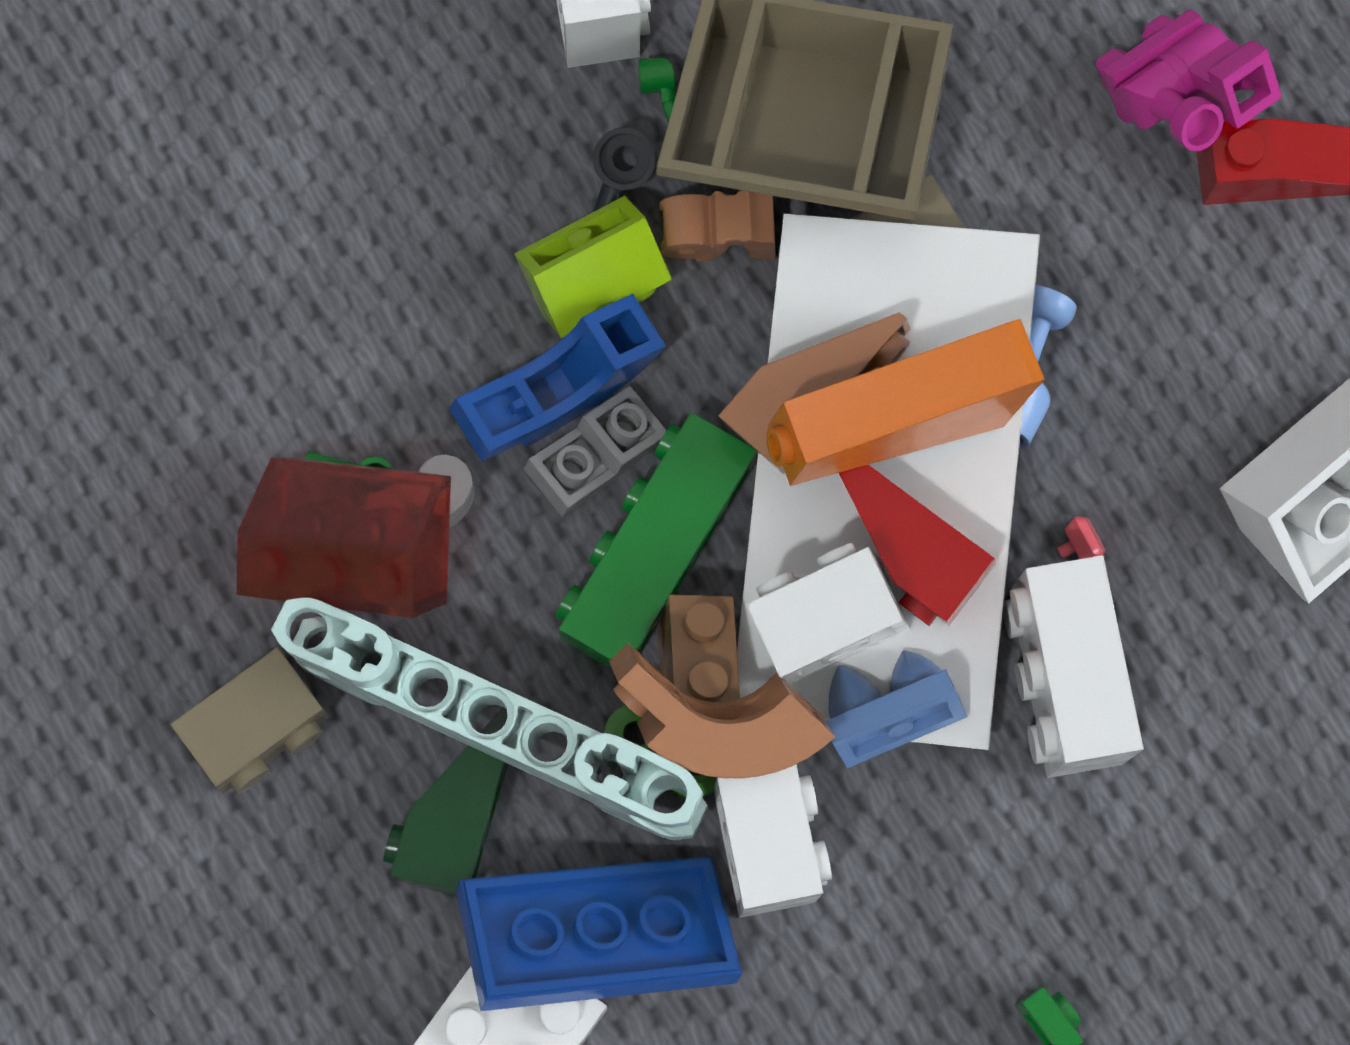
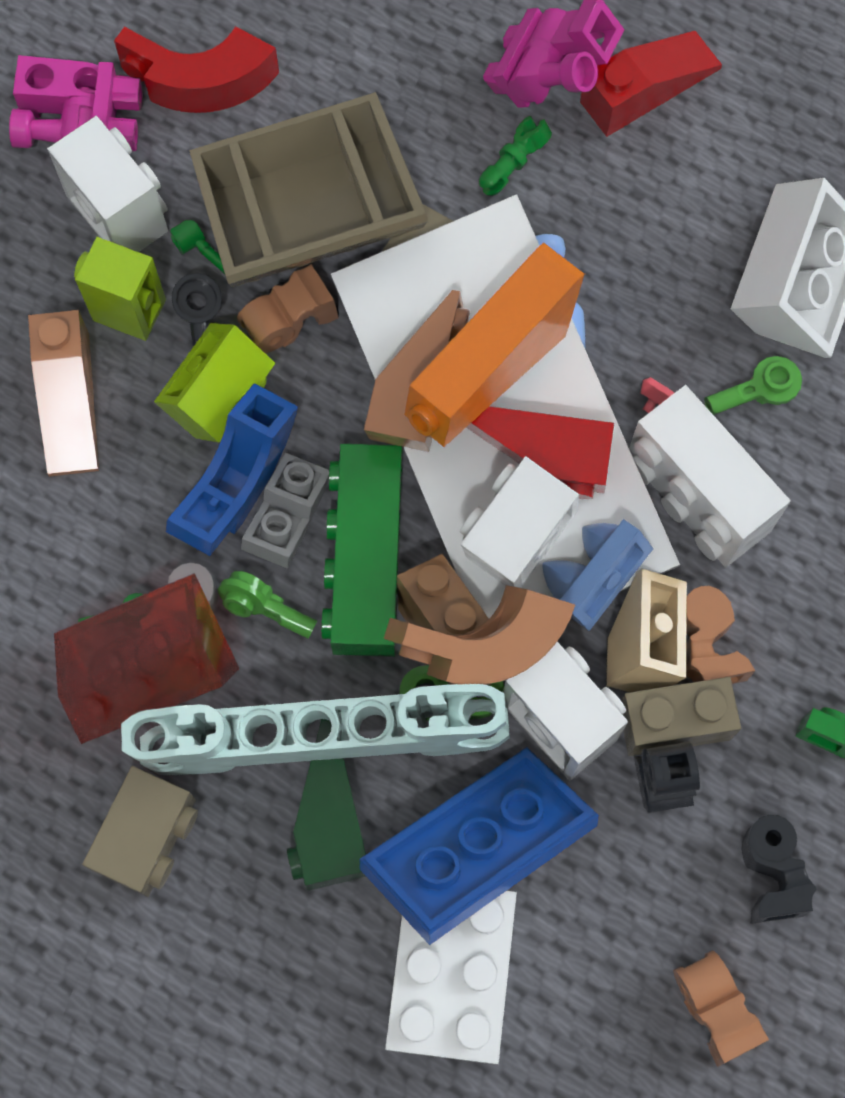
camera: 25 degrees left, 5 degrees down
(424, 188) = (64, 391): none -> slope
(501, 525) = (248, 595): none -> bright green plate
(545, 104) = (120, 288): none -> lime brick
(841, 973) = (667, 776): none -> black leg
(894, 914) = (681, 713): none -> dark tan brick
(911, 809) = (649, 635): none -> tan slope
(989, 824) = (707, 620): none -> nougat leg
(1105, 163) = (513, 156): none -> green piece
(1224, 597) = (773, 382): none -> bright green plate

